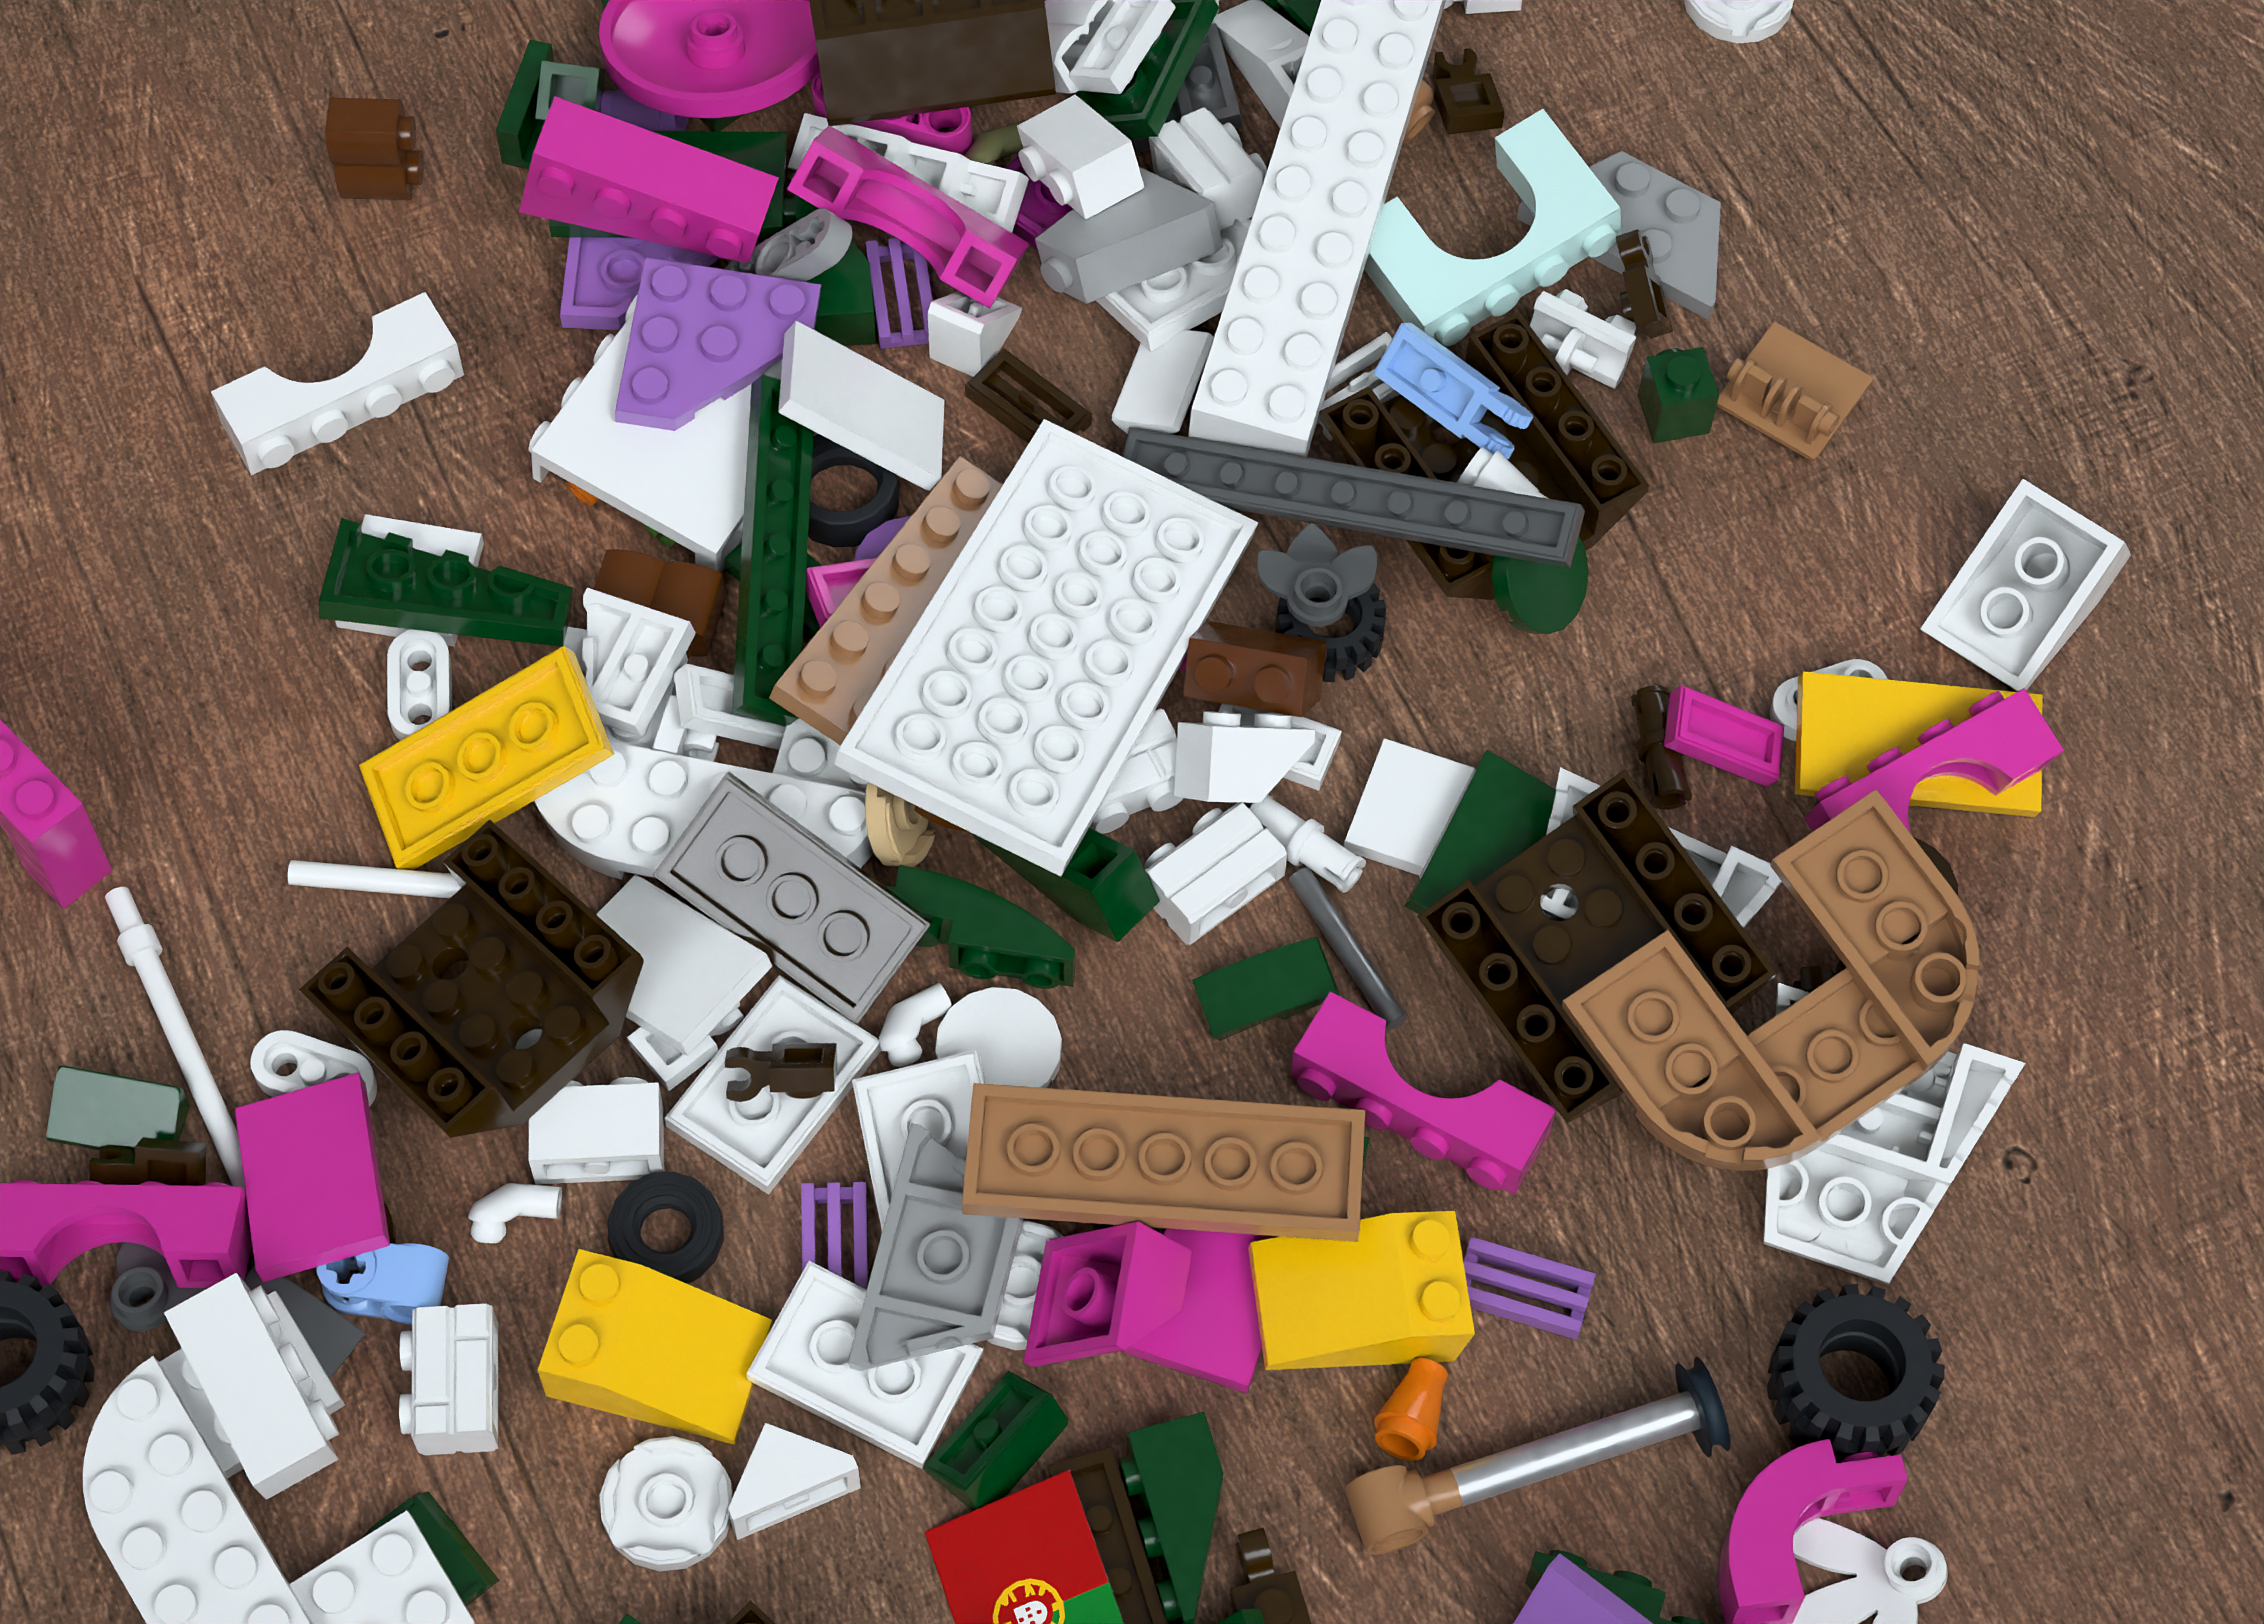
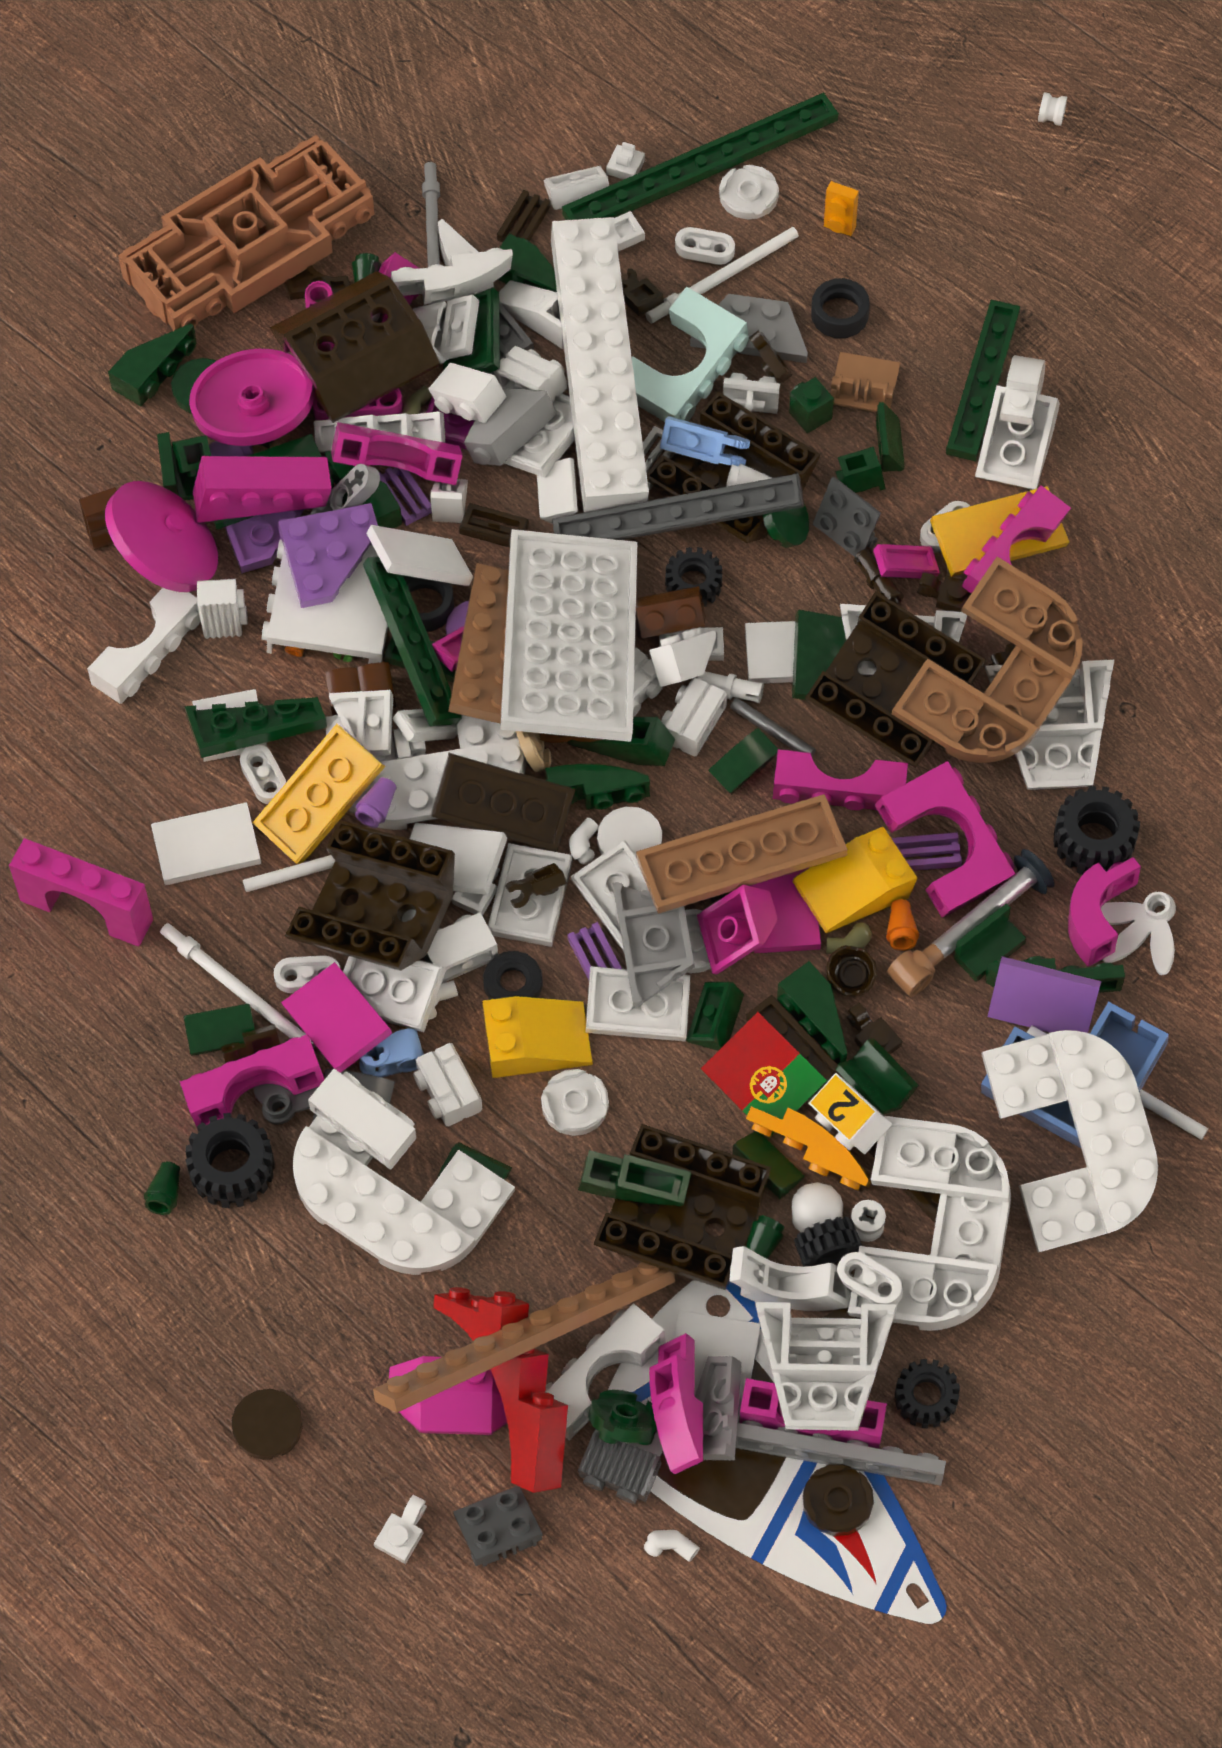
camera: 20 degrees left, 0 degrees up
(264, 772) = (206, 843): none -> white tile
(438, 212) = (161, 536): none -> dark pink dish
(445, 1183) = (397, 995): none -> white tile
(484, 371) = (221, 608): none -> white brick
(568, 813) = (375, 804): none -> medium lavender cone
(788, 1478) = (629, 1066): white slope -> none
(1276, 1461) = (851, 971): none -> dark brown hair
(1309, 1406) = (857, 937): none -> olive arm
(1317, 571) = (677, 554): dark grey plate -> none
(1560, 1510) = (988, 943): none -> dark green panel
(1589, 1191) = (943, 794): none -> dark pink arch
(1620, 56) = (705, 244): none -> white plate
(1645, 112) = (727, 271): none -> white bar
(1648, 619) = (847, 518): none -> dark grey hinge
(1712, 544) = (860, 471): none -> dark green brick
(1775, 822) = (949, 594): none -> dark brown plate
(1794, 506) = (889, 439): none -> dark green slope
(1819, 211) = (844, 289): none -> black tyre
(1882, 72) = (841, 208): none -> light orange plate
(2014, 452) = (982, 380): none -> dark green plate
(2071, 491) = (1022, 387): none -> white arch

